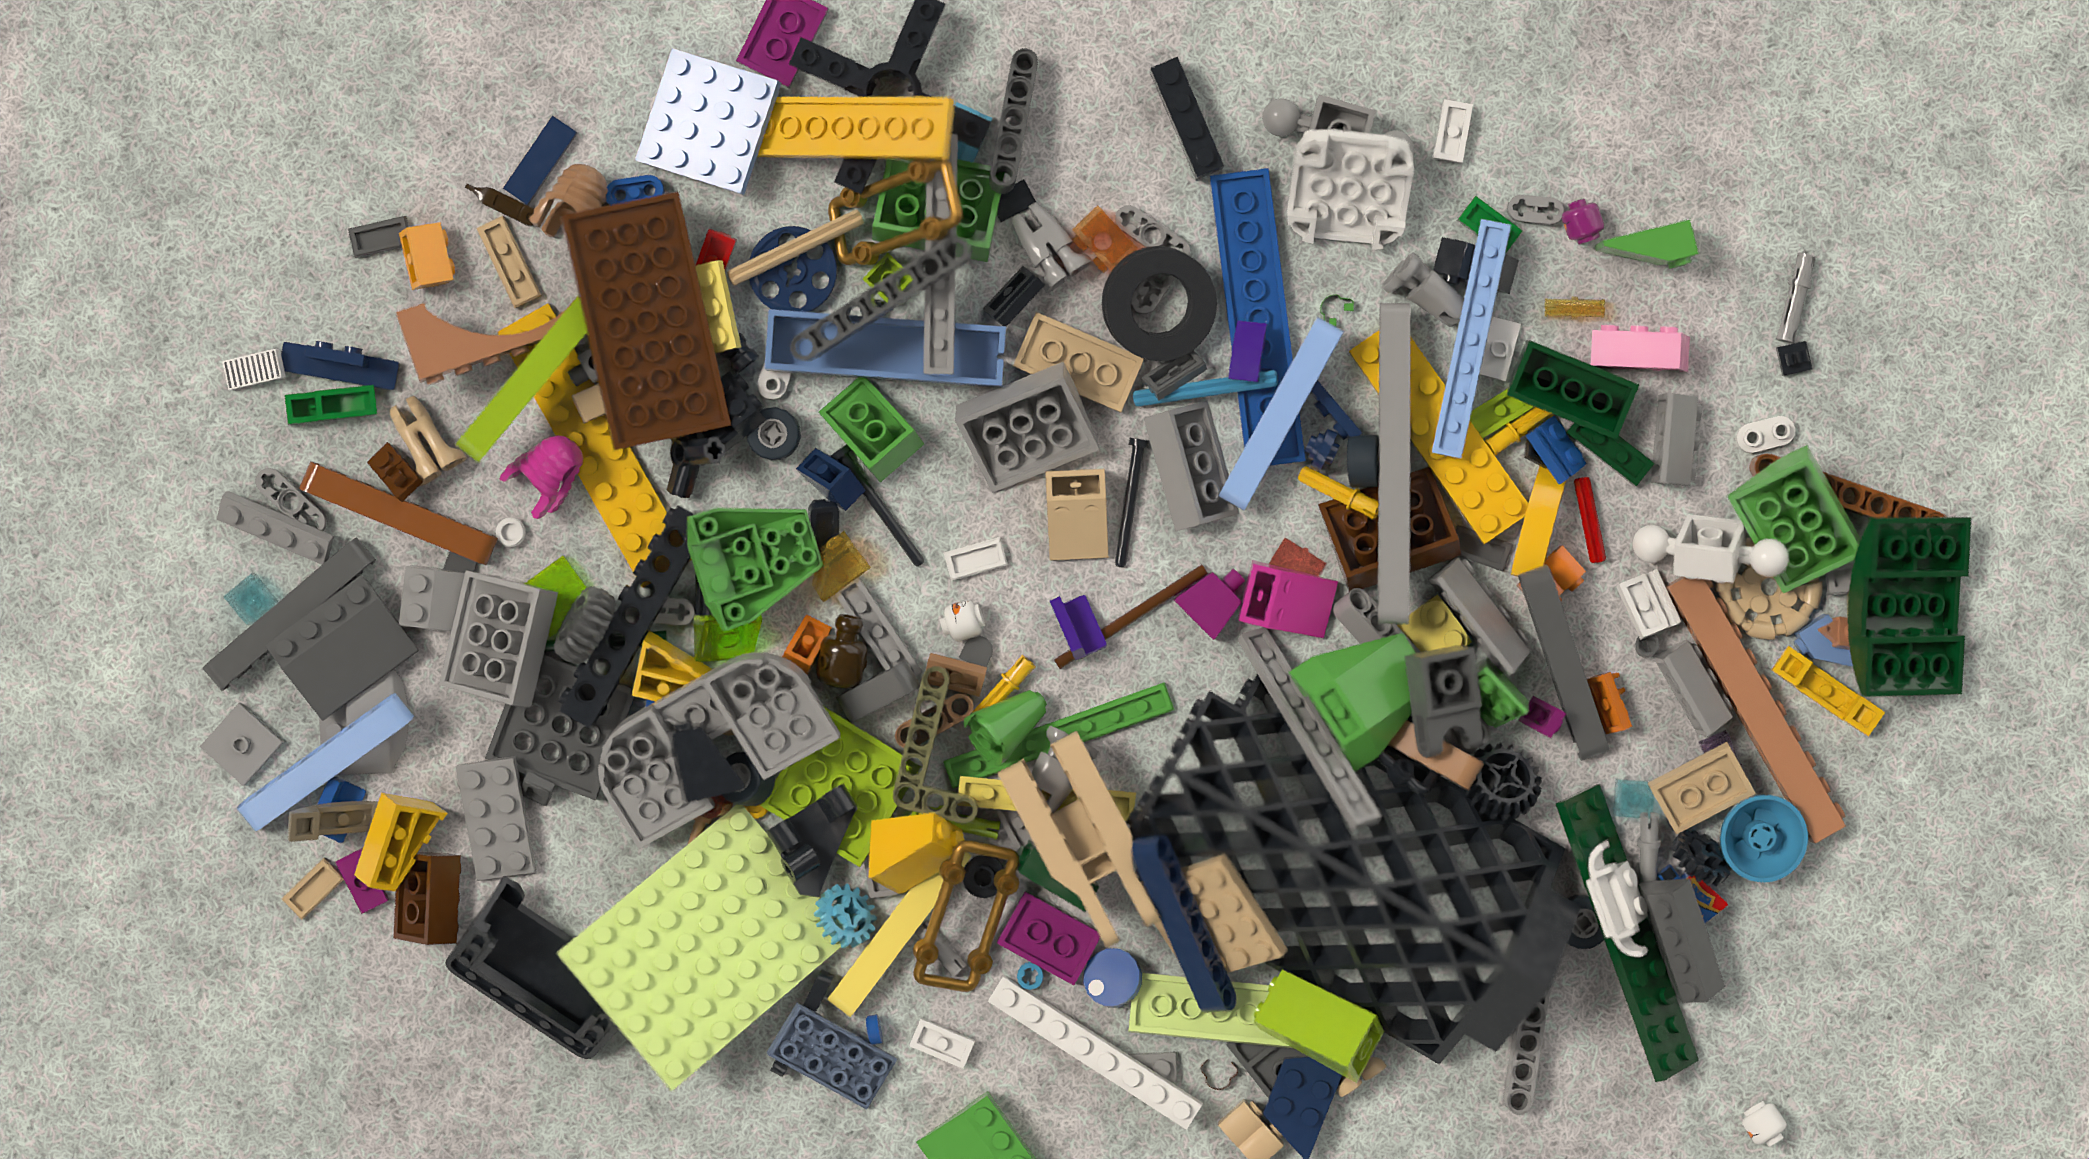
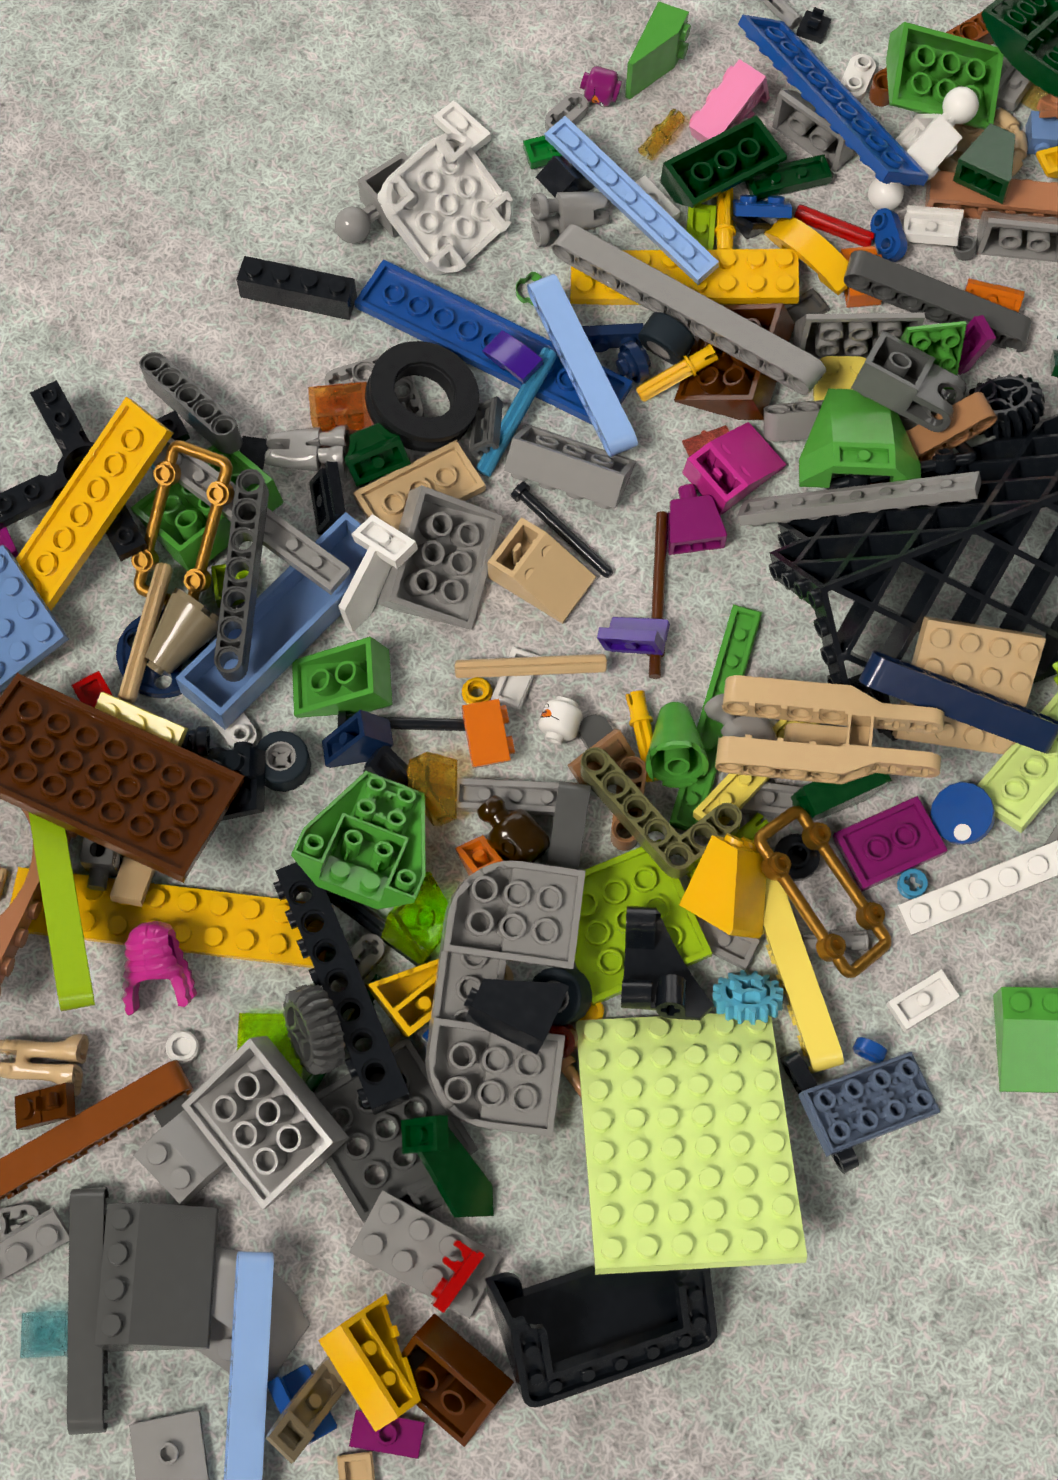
camera: 60 degrees left, 20 degrees down
(497, 856) = (447, 1290): none -> red plate
(565, 791) = (449, 1165): none -> dark green piece
(687, 456) = (242, 835): black piece -> none
(812, 280) = (180, 633): none -> dark tan cone
(908, 572) = (486, 733): none -> orange brick
(941, 527) = (476, 683): none -> yellow plate
(990, 565) = (530, 666): none -> tan axle
(991, 388) = (385, 549): none -> white piece
(1079, 305) = (374, 454): none -> dark green slope
(1611, 573) = (888, 231): none -> blue plate
(1698, 440) = (833, 101): none -> blue plate
(1735, 616) = (988, 164): none -> dark green slope

